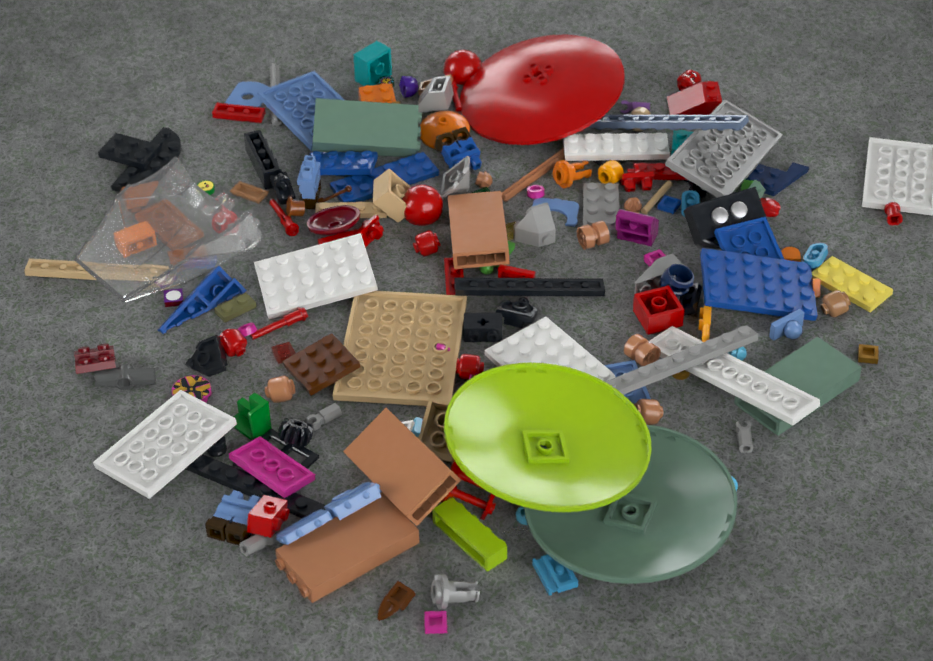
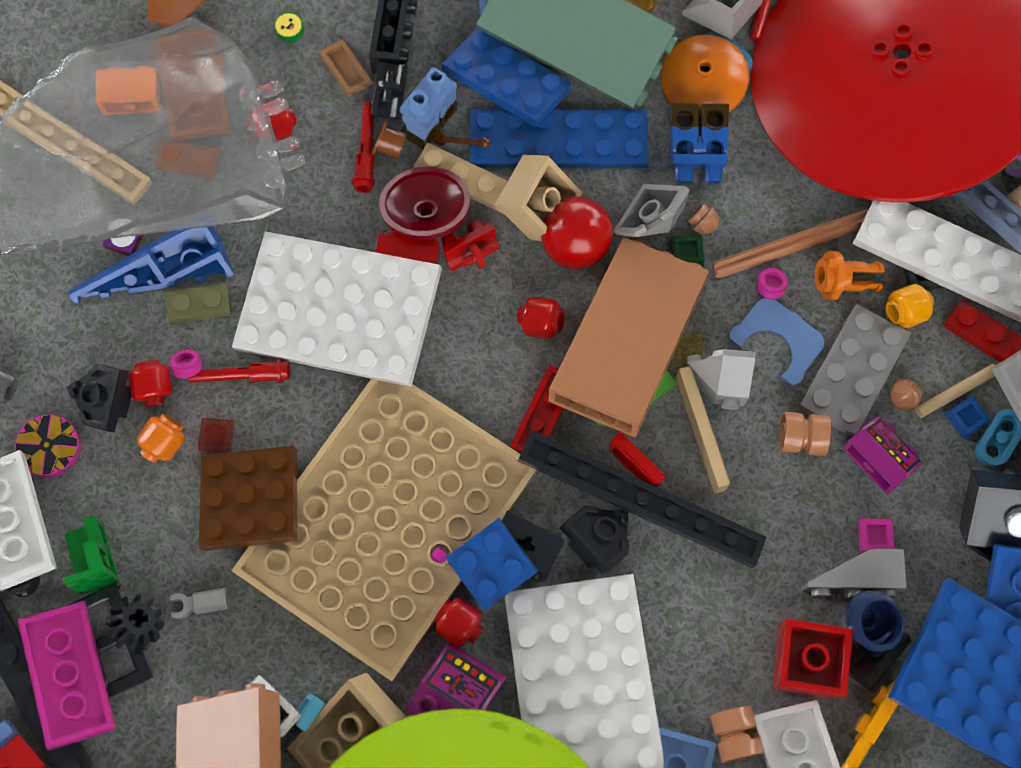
camera: 25 degrees right, 30 degrees up
(255, 361) = (160, 438): none -> orange head
(280, 389) = (165, 516): nougat head -> none
(470, 334) = (491, 564): none -> blue plate
(541, 253) = (702, 430): none -> tan tile
(637, 176) = (958, 348): red hips -> none

